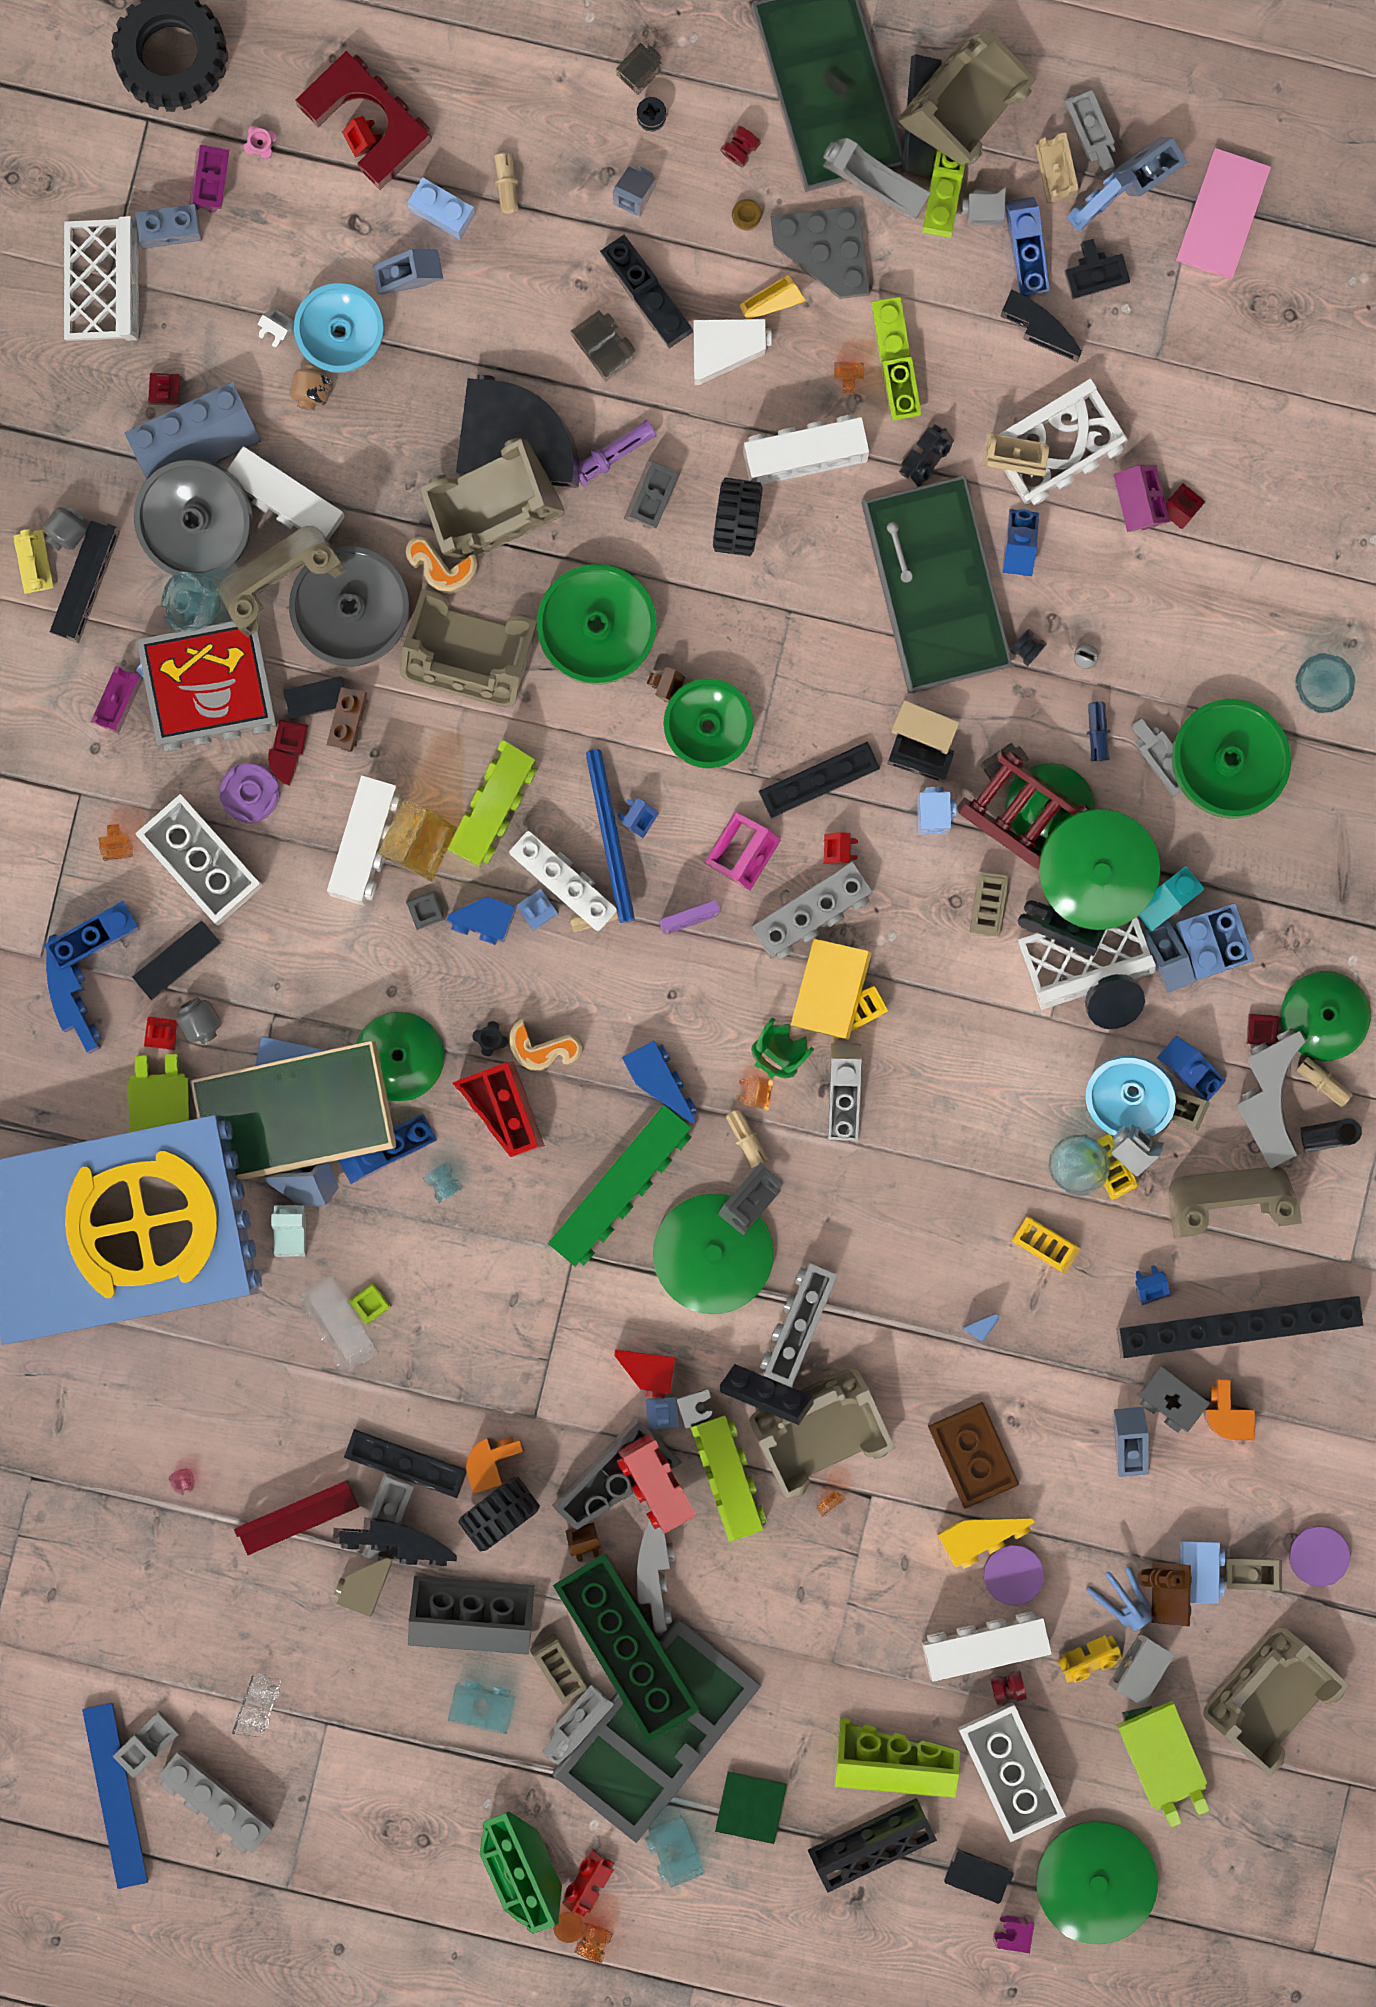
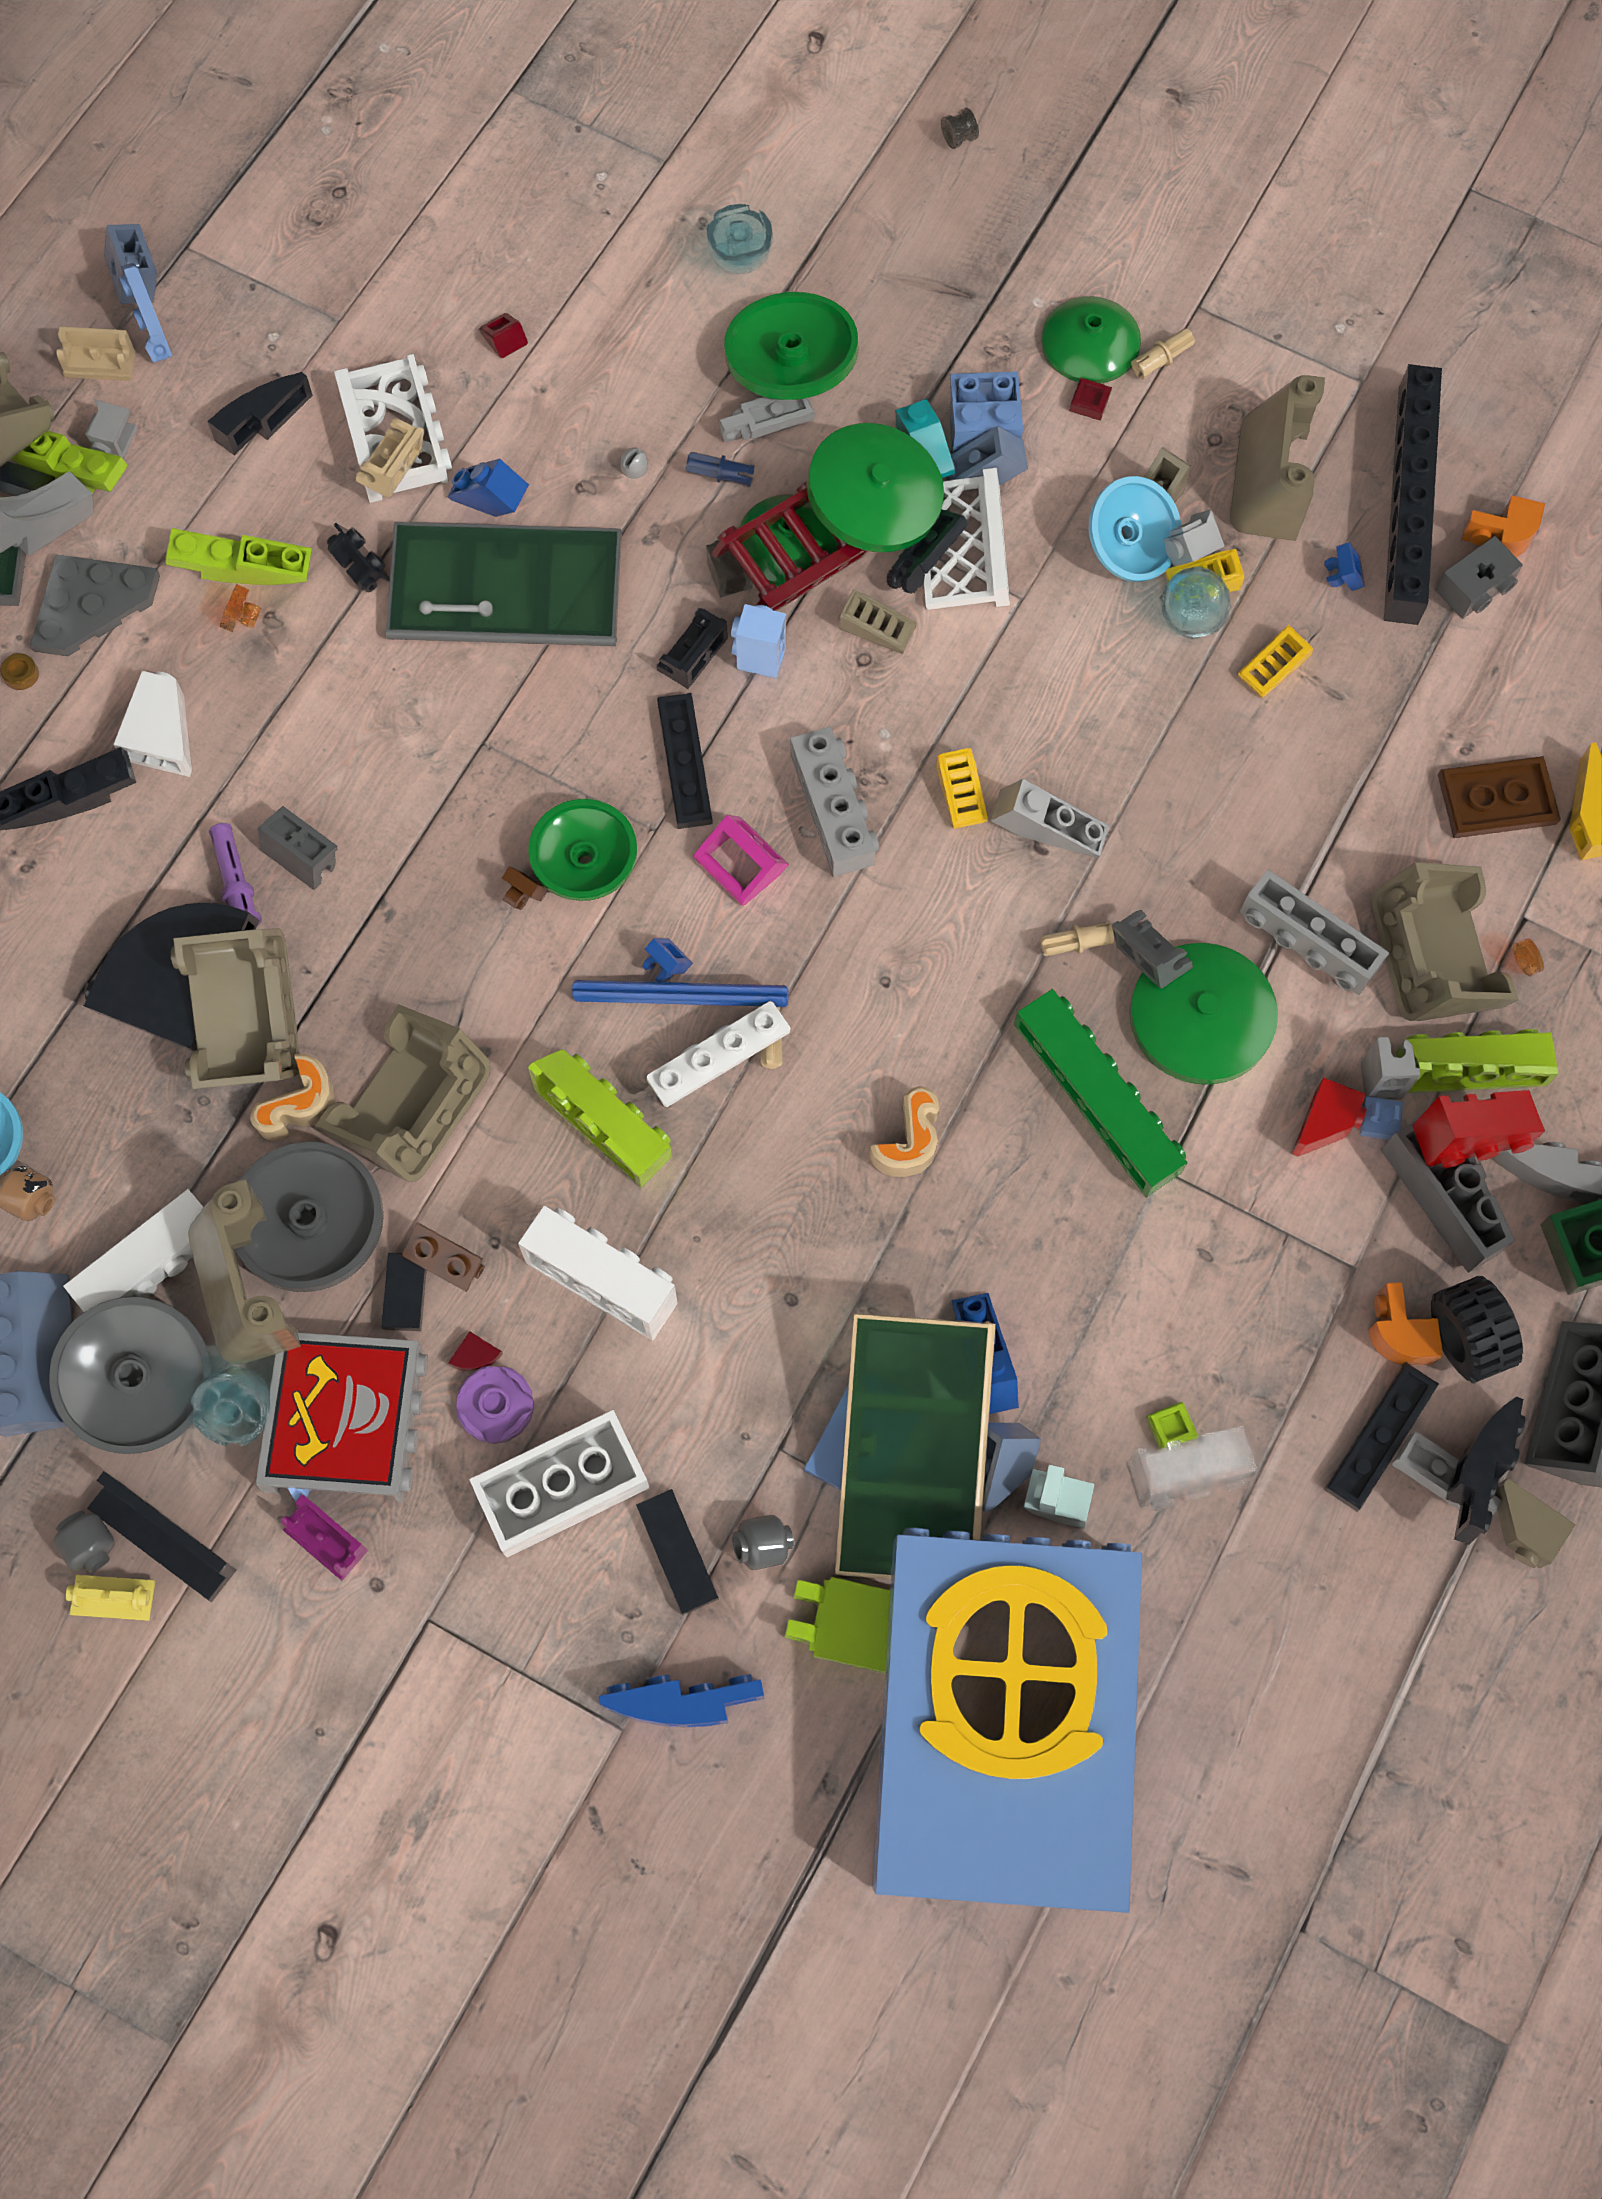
camera: 75 degrees left, 15 degrees down
(92, 936) = (615, 1646): blue slope -> none
(115, 844) = (507, 1587): clear orange tile -> none
(161, 1033) = (764, 1597): red tile -> none
(182, 1480) = (1340, 1728): clear pink hinge -> none
(291, 737) = (442, 1335): dark red tile -> none
(297, 1517) = (1423, 1589): dark red fence -> none
(421, 1050) = (857, 1283): green dish -> none
(425, 910) = (704, 1232): dark grey tile -> none
(434, 833) = (606, 1201): clear yellow window -> none
(443, 1182) = (1048, 1293): clear light blue wheel -> none
(485, 917) = (735, 1159): blue slope -> none
(498, 1039) = (881, 1186): black plate -> none
(504, 1107) = (971, 1196): red wedge -> none
(537, 909) = (741, 1102): medium blue tile -> none
(583, 1541) = (1525, 1247): reddish brown tile -> none
(596, 624) = (426, 941): green dish -> none
(603, 345) = (105, 854): clear smoke brick -> none
(653, 1076) = (978, 1019): blue slope -> none
(689, 917) = (803, 926): medium lavender tile -> none
(737, 516) = (355, 752): black tyre -> none
(757, 1092) = (1027, 913): clear orange tile -> none
(766, 1394) = (1389, 987): black plate -> none
(775, 297) = (122, 659): yellow slope -> none
(778, 1046) = (993, 873): green helmet -> none
(806, 450) = (306, 667): white brick -> none
(831, 989) = (928, 803): yellow tile -> none
(838, 848) = (768, 756): red tile -> none
(925, 726) = (659, 629): tan hinge -> none
(982, 1328) = (1356, 746): medium blue slope -> none
(1027, 245) = (164, 401): blue slope -> none
(1028, 647) = (605, 510): black wheel -> none
(1092, 129) = (73, 310): light grey hinge -> none
(1096, 272) = (222, 348): black hinge -> none
(1115, 1001) = (1024, 520): black tile -> none
(1131, 1441) = (1517, 628): sand blue slope -> none
(1141, 497) = (480, 364): magenta hinge -> none
(1191, 1068) = (1113, 463): blue slope -> none
(1223, 213) = (209, 221): bright pink tile -> none
(1264, 1110) = (1178, 409): light grey arch -> none
(1327, 1135) = (1223, 358): black piece -> none

